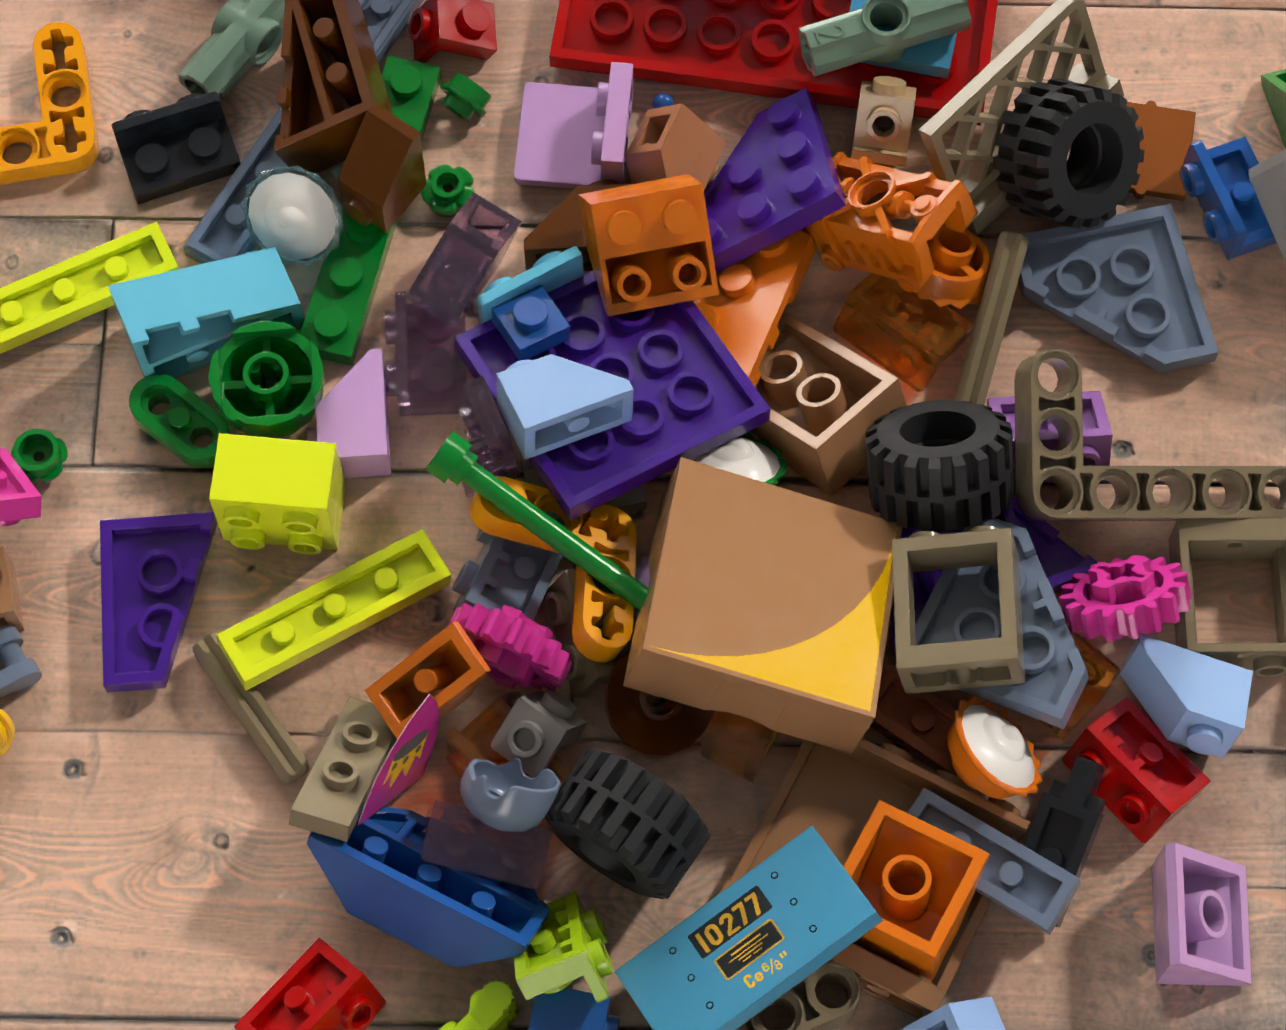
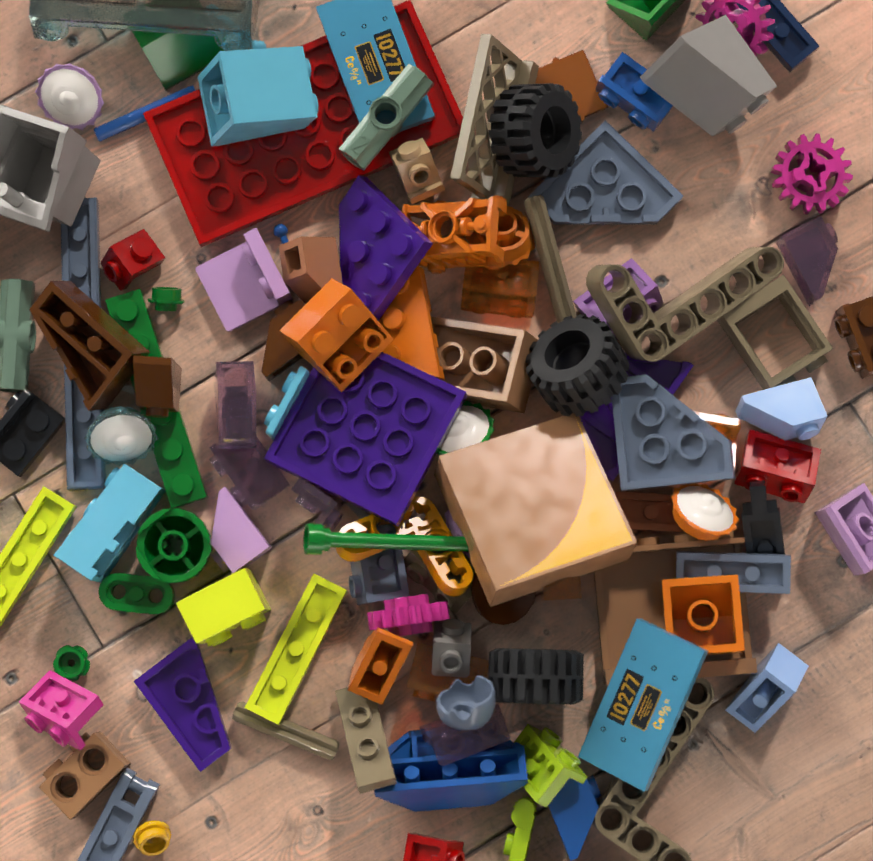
camera: 30 degrees left, 15 degrees up
(406, 758) = (396, 714): dark pink sticker -> none
(447, 203) = (200, 368): green plate -> none
(530, 323) = (302, 424): blue plate -> none
(560, 402) = (351, 468): light blue slope -> none
(958, 662) = (663, 479): dark tan window -> none
(1125, 598) = (722, 380): dark pink gear -> none

